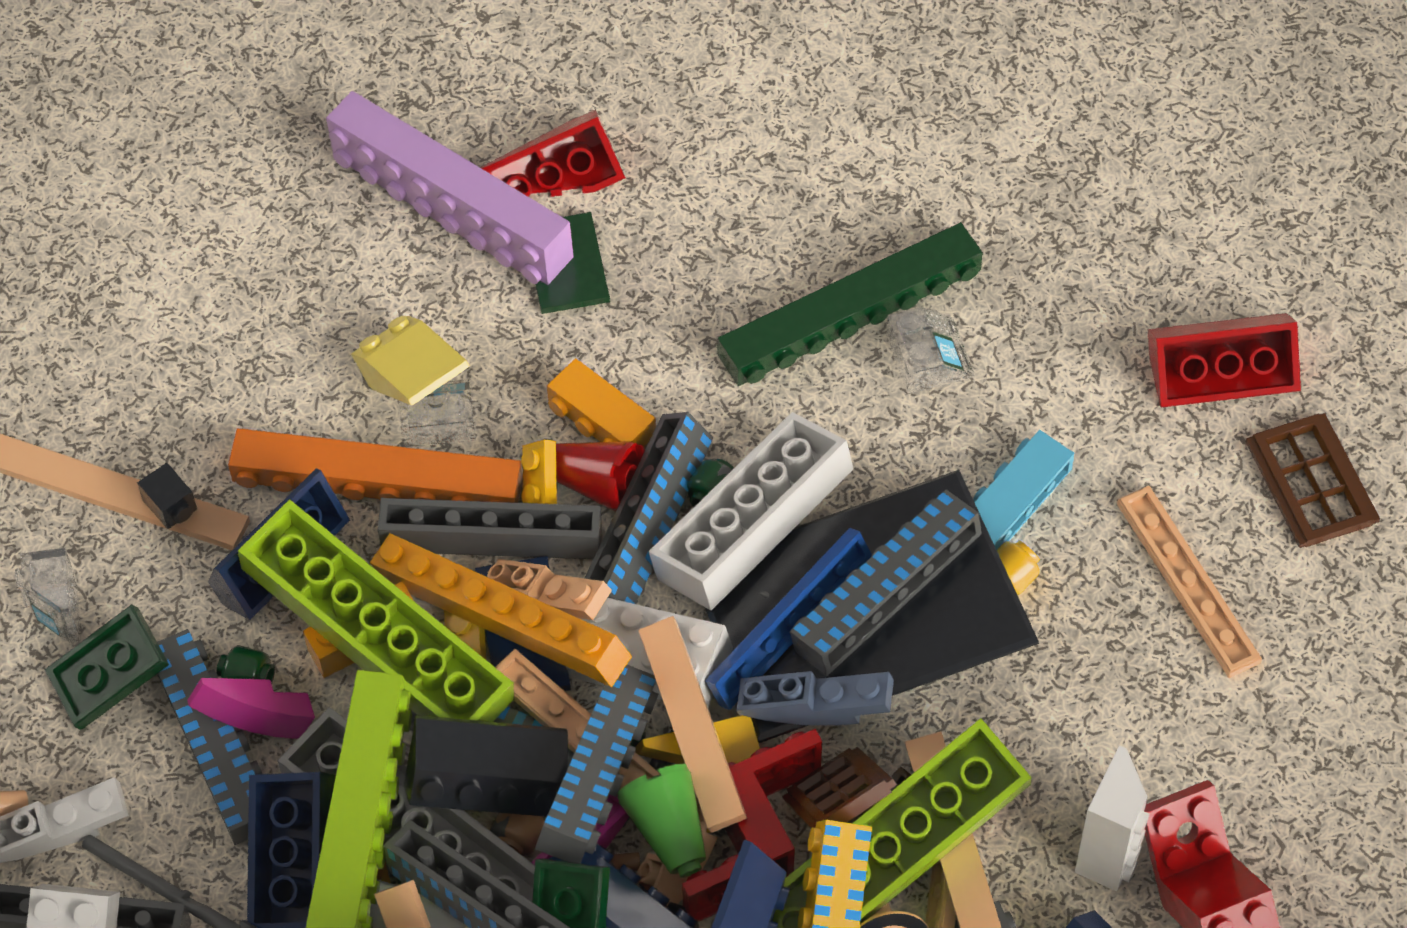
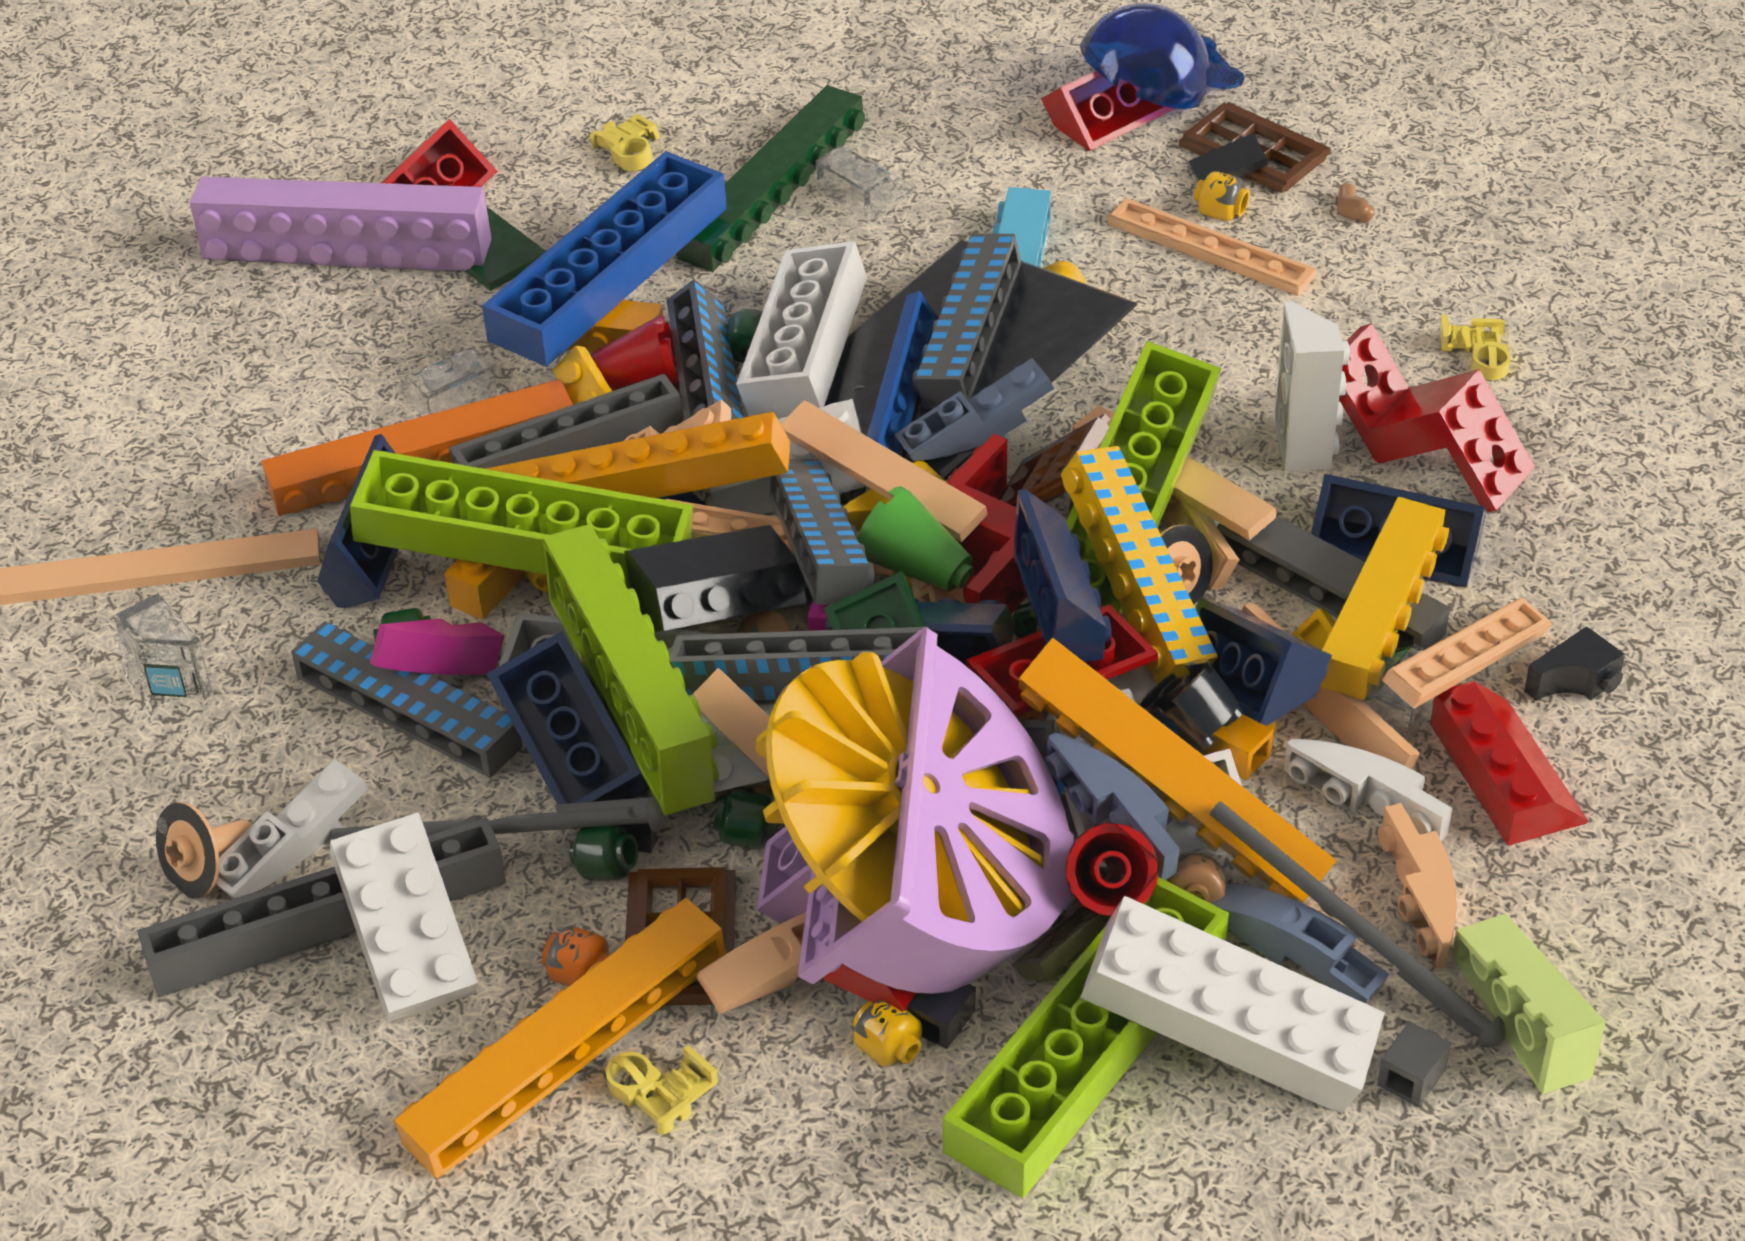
camera: 30 degrees left, 15 degrees down
(106, 667) = (258, 687): dark green tile -> none
(167, 496) = (226, 536): black brick -> none
(407, 360) = (394, 348): light yellow slope -> none
(628, 351) = (604, 258): none -> blue brick
(751, 193) = (627, 140): none -> light yellow piece
(1235, 529) = (1222, 196): none -> yellow head
(1267, 492) = (1233, 159): none -> black tile
(1278, 339) = (1158, 55): none -> clear blue windscreen
(1349, 599) = (1352, 206): none -> medium nougat arm
(1352, 823) = (1483, 344): none -> light yellow piece

